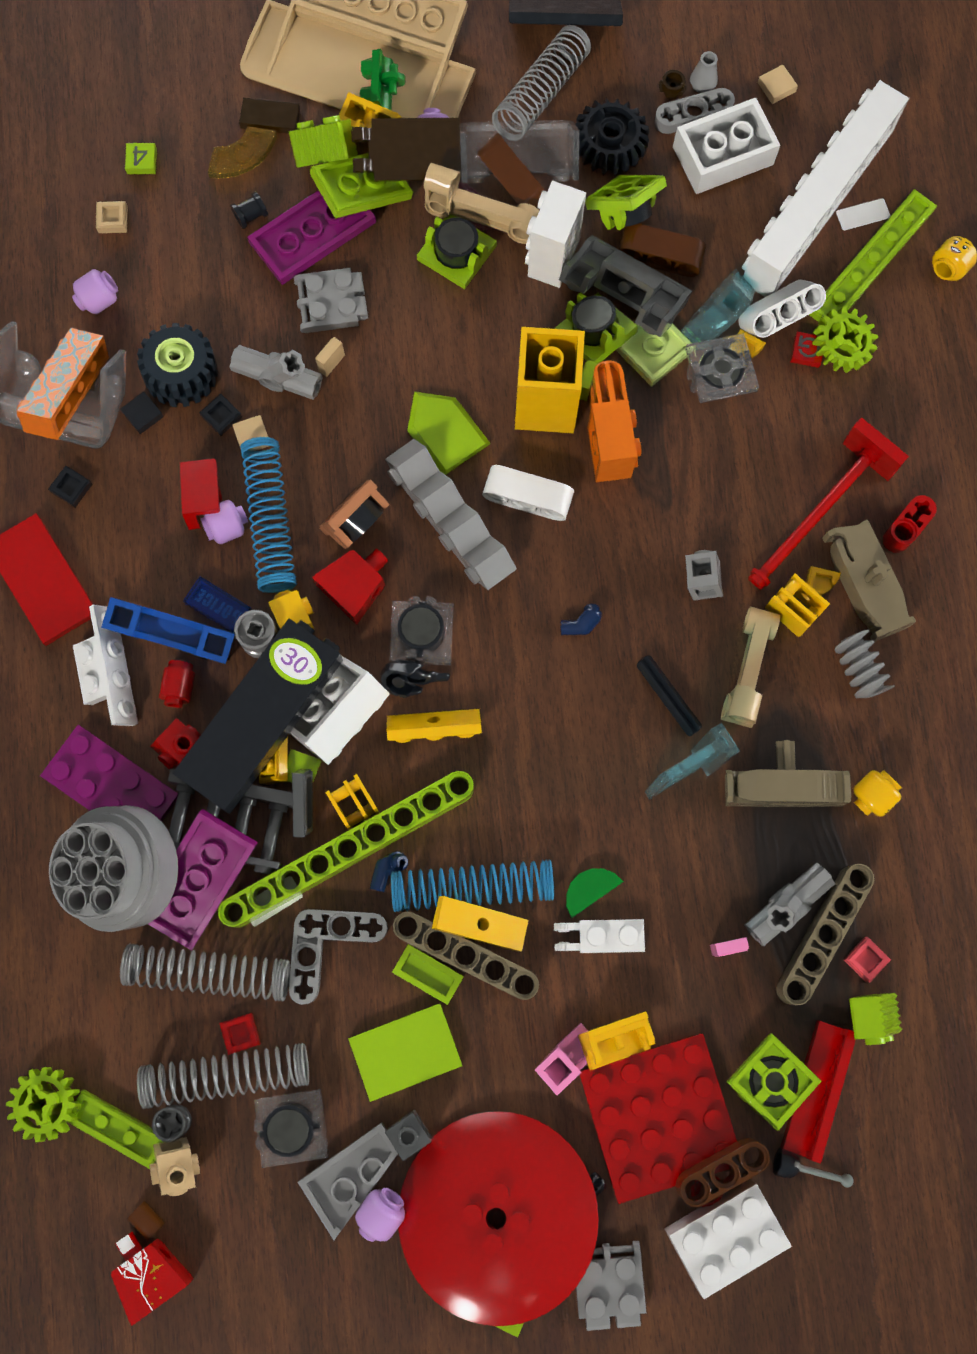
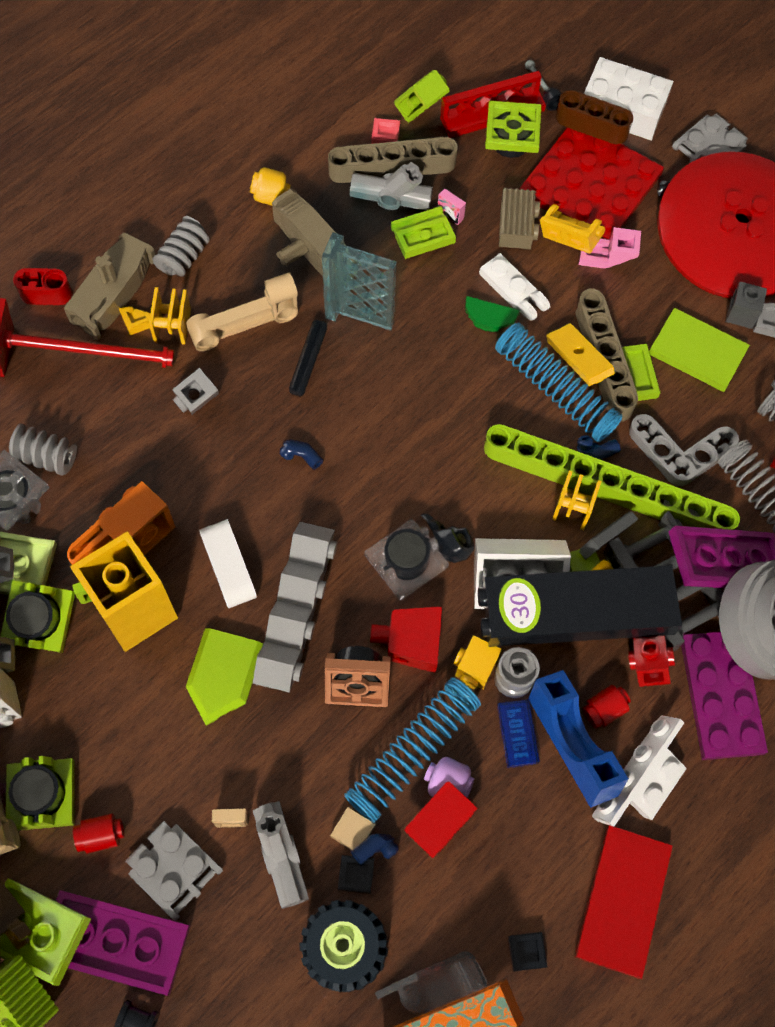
camera: 130 degrees left, 10 degrees down
(142, 412) = (411, 947): black tile -> none
(227, 437) = (375, 843): none -> dark blue arm
(393, 265) = (98, 833): none -> red brick
(433, 725) = (469, 493): yellow tile -> none
(668, 999) = (517, 218): none -> dark tan brick
(721, 898) = (423, 232): none -> lime plate
(739, 418) = (42, 452): none -> light grey piece

